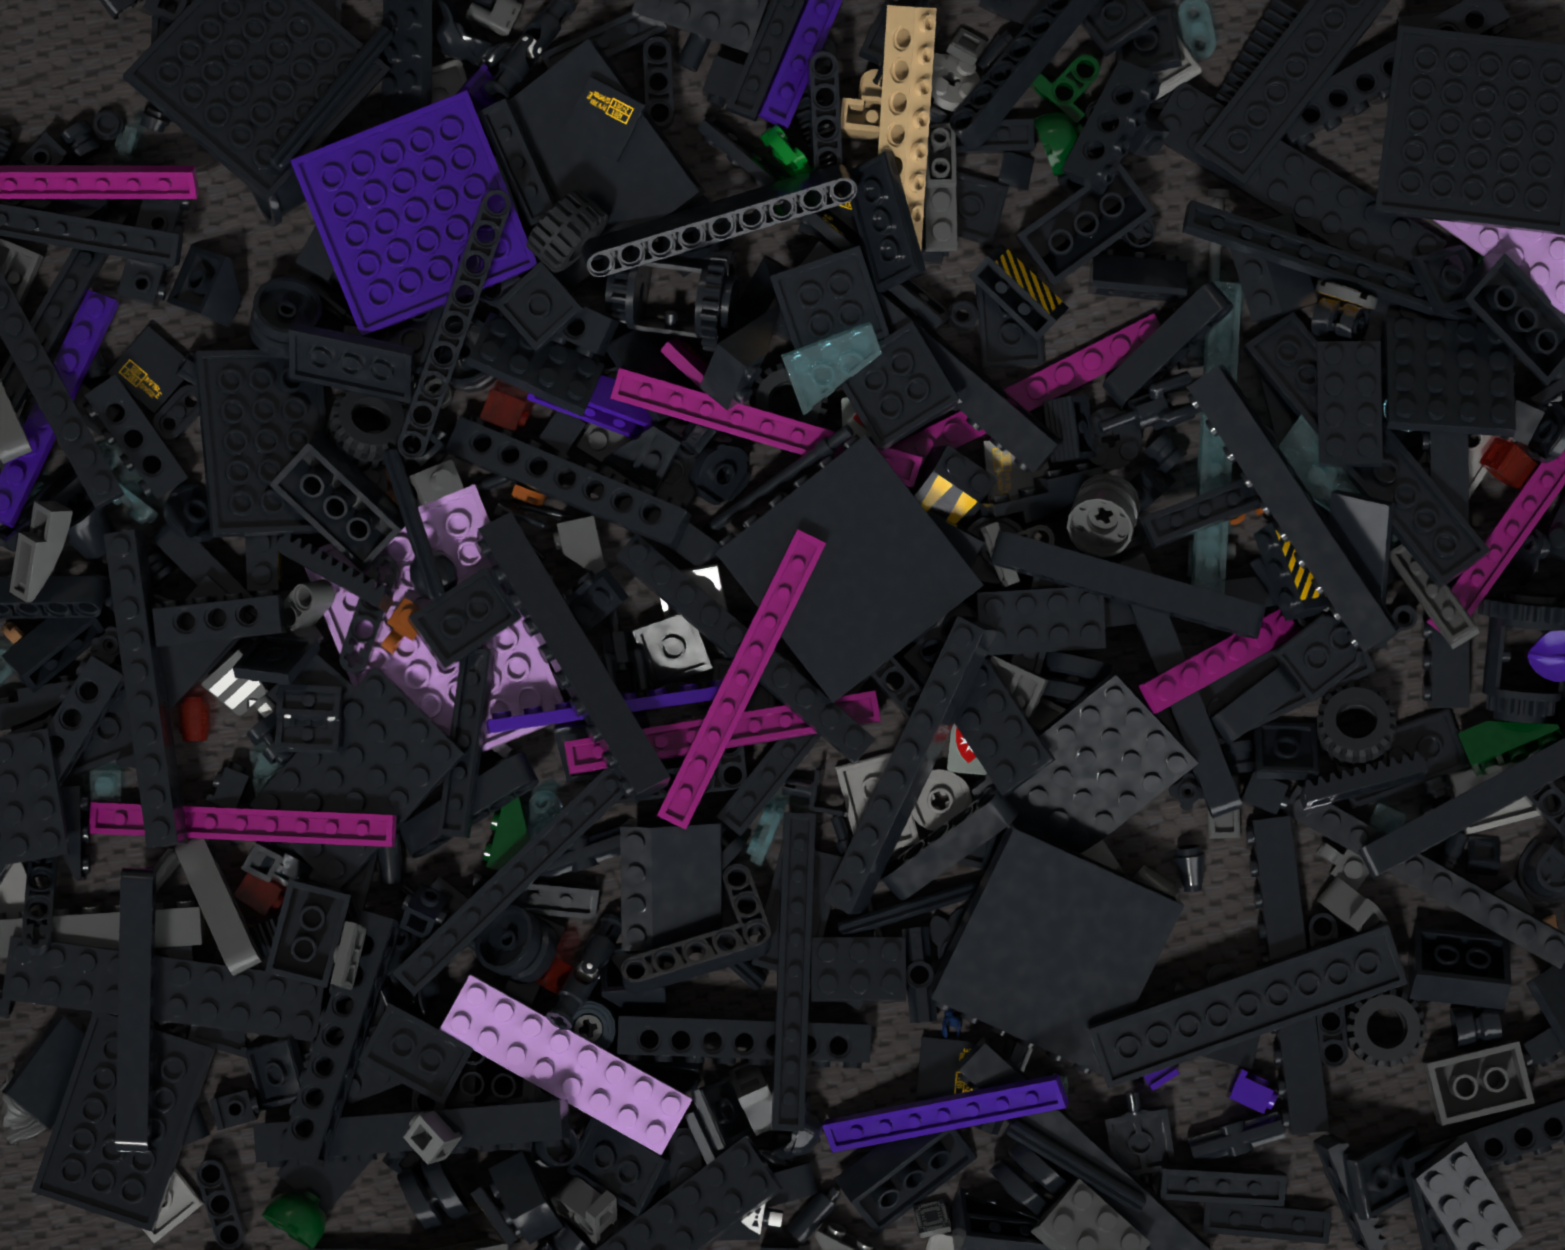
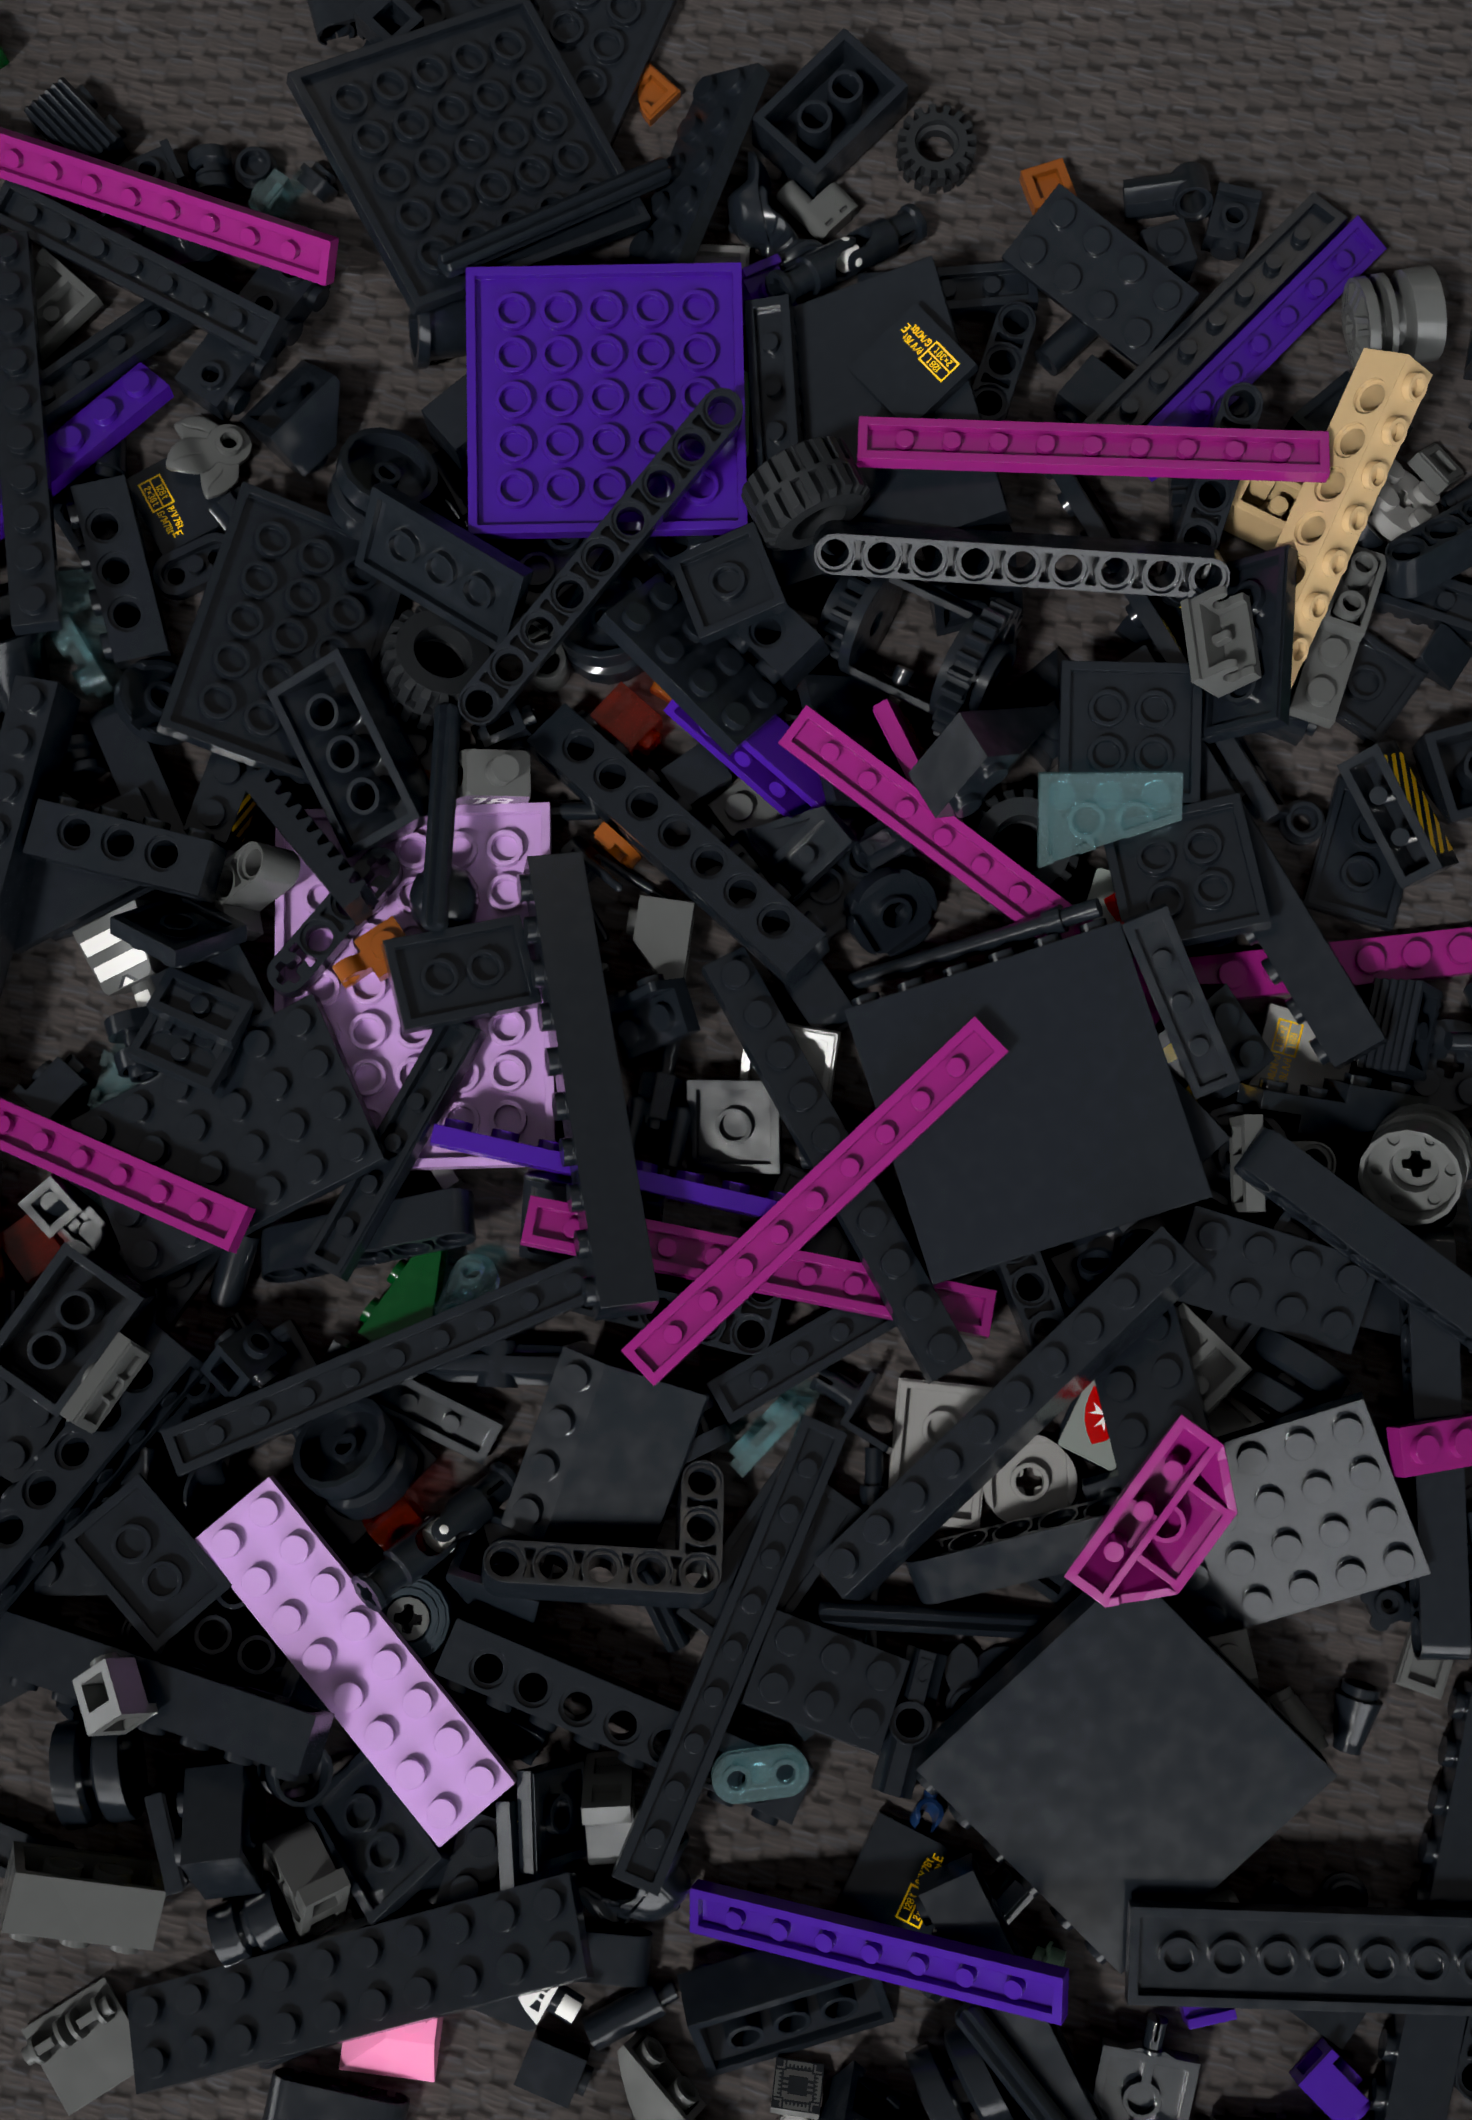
camera: 30 degrees right, 5 degrees down
(155, 336) = (204, 454): none -> dark grey plate
(194, 719) = (46, 978): clear red brick -> none
(738, 135) = (1093, 449): none -> magenta plate
(791, 160) = (1141, 516): green plate -> none
(839, 1039) = (760, 1771): none -> clear light blue plate
(865, 228) = (1220, 641): none -> dark grey hinge
(921, 469) = (1180, 1001): none -> black gear
(1019, 794) = (1160, 1521): none -> magenta wedge

